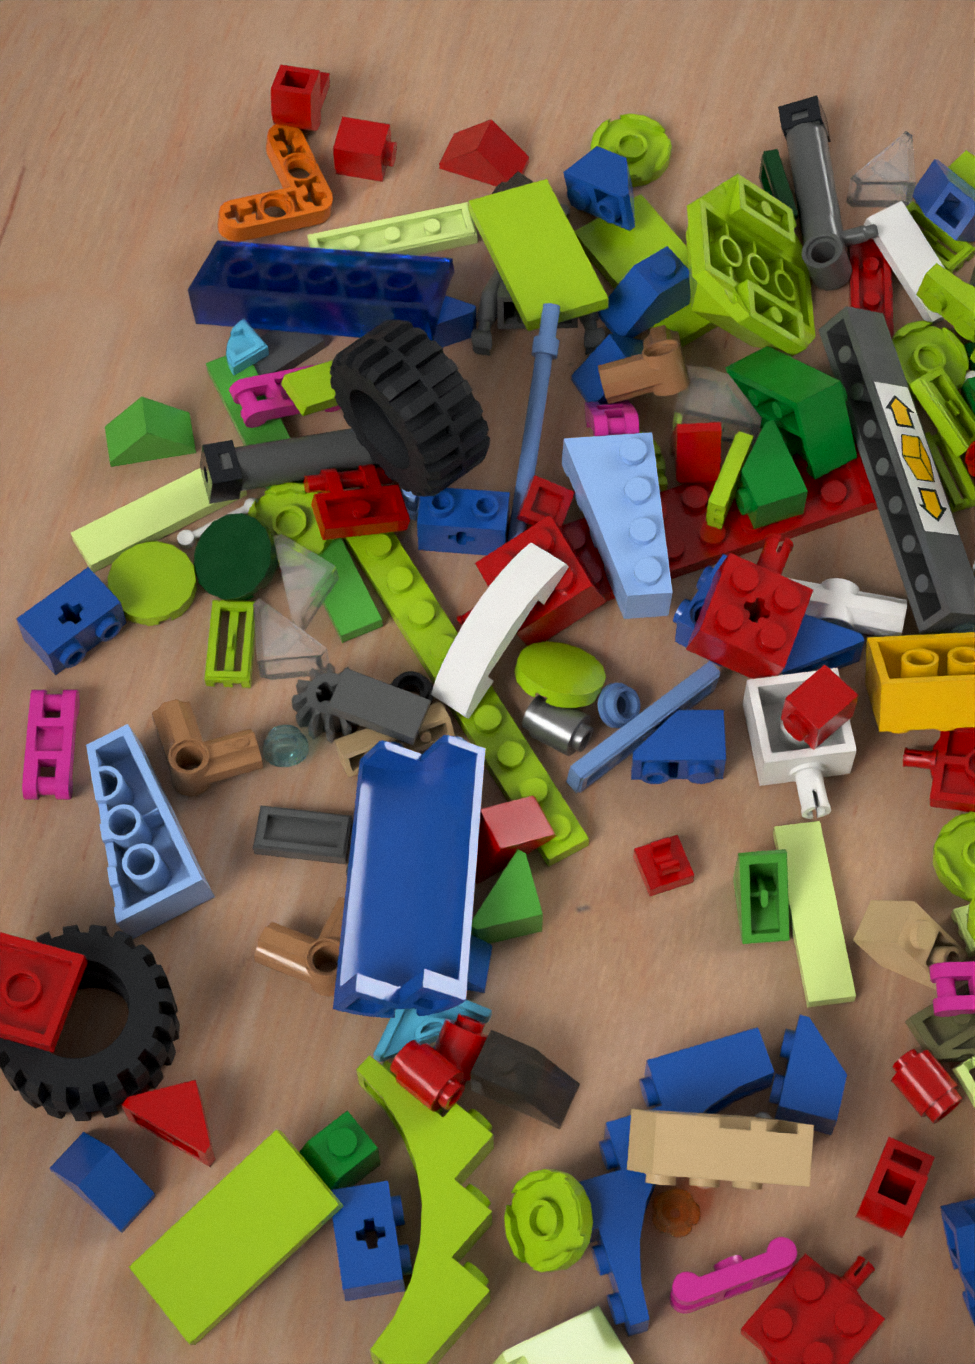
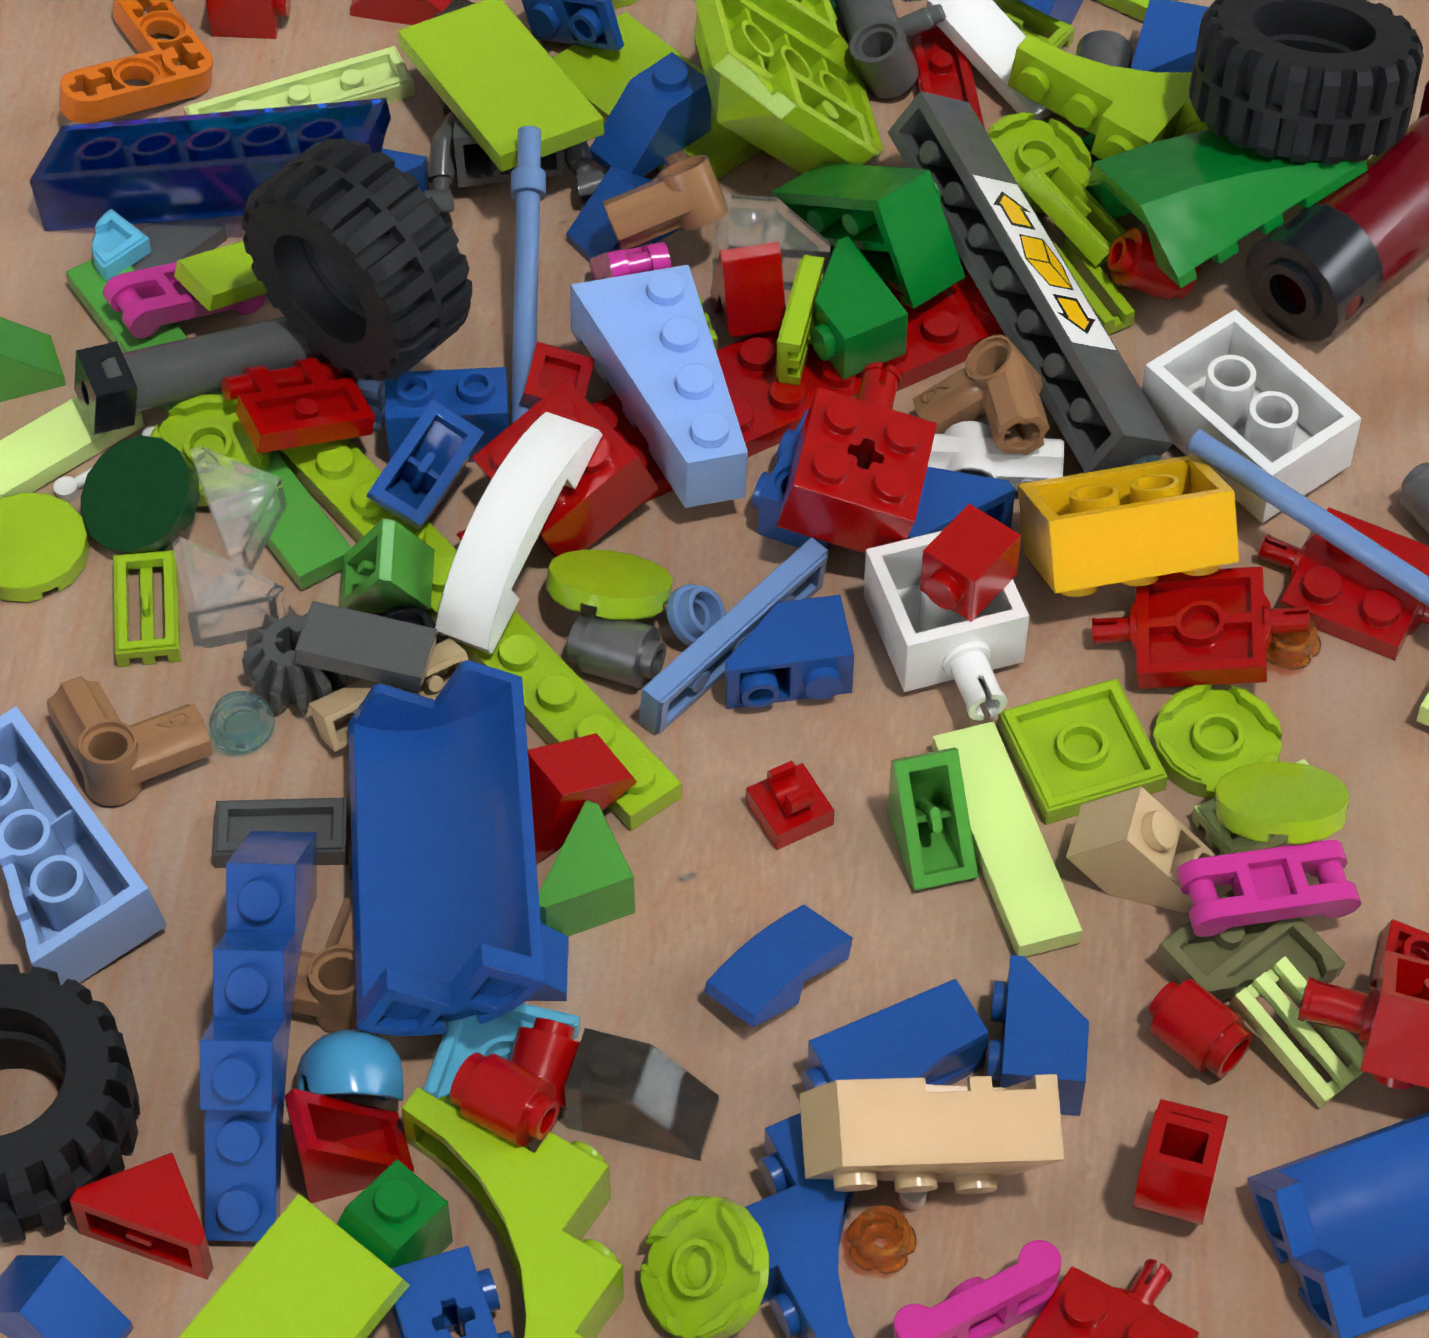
camera: 10 degrees left, 10 degrees down
(261, 989) = (247, 1043): none -> blue arch
(316, 1085) = (342, 1143): none -> red slope
(326, 1032) = (351, 1065): none -> dark azure hair
(402, 645) = (387, 571): none -> bright green slope
(440, 565) = (425, 465): none -> blue slope
(634, 990) = (771, 967): none -> blue slope
(867, 555) = (994, 384): none -> medium nougat piece
(880, 851) = (1080, 749): none -> lime tile

